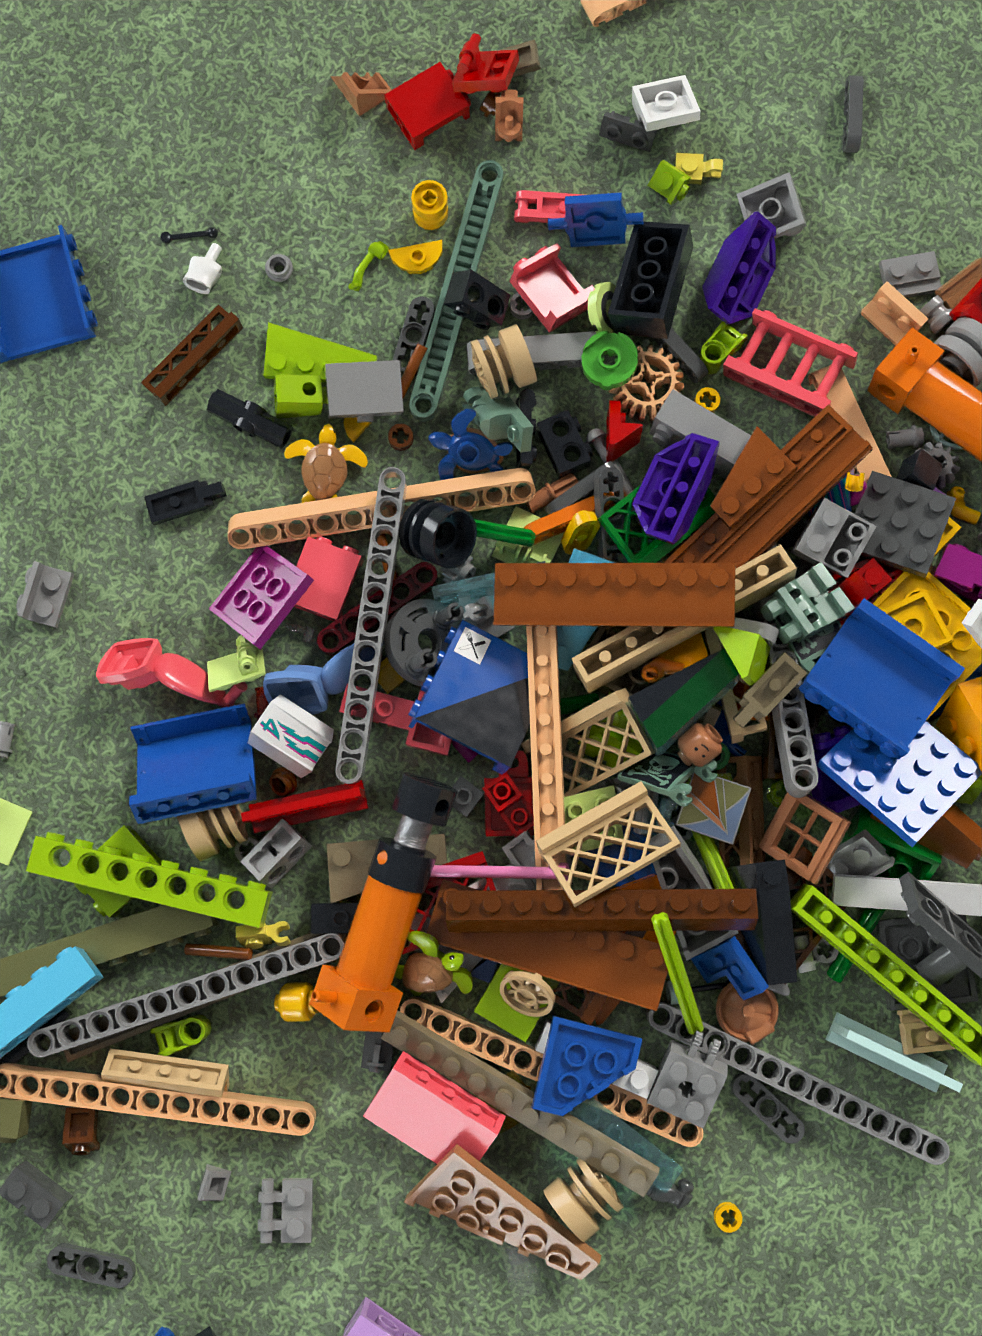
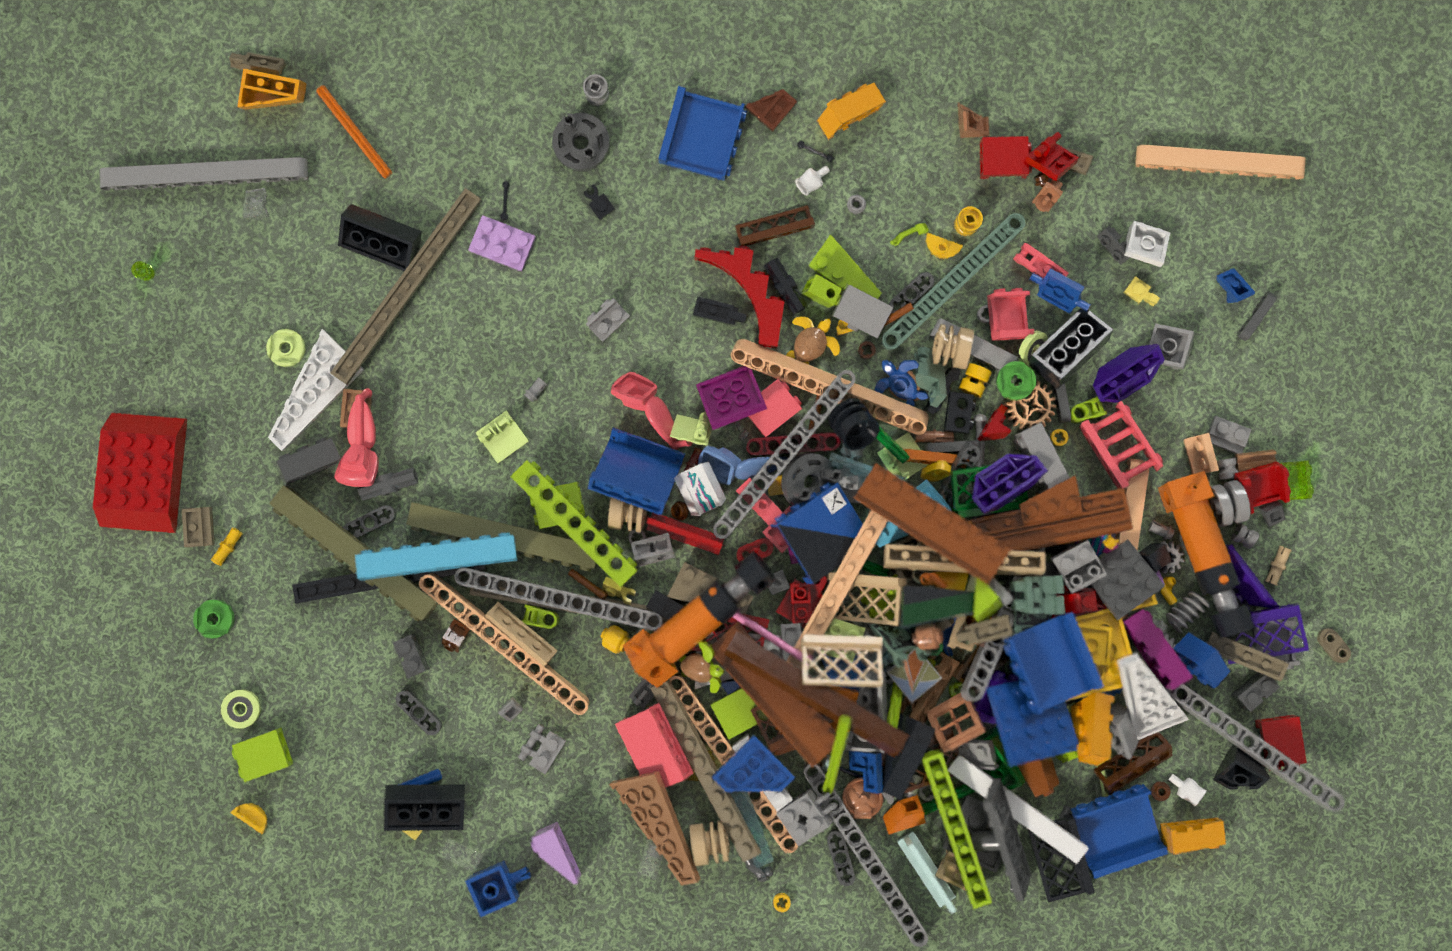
camera: 30 degrees right, 5 degrees up
(103, 213) = (772, 108): none -> copper wing
(199, 155) = (850, 108): none -> light orange wedge
(210, 439) = (755, 284): none -> red arch
(409, 766) = (755, 546): none -> red plate
(477, 299) = (960, 296): black brick -> none
(527, 993) = (746, 714): tan wheel -> none
(558, 390) = (978, 374): none -> yellow wheel
(670, 182) = (1120, 292): lime bracket -> none
(803, 92) = (1235, 286): none -> blue slope
(814, 999) = (904, 815): none -> orange slope

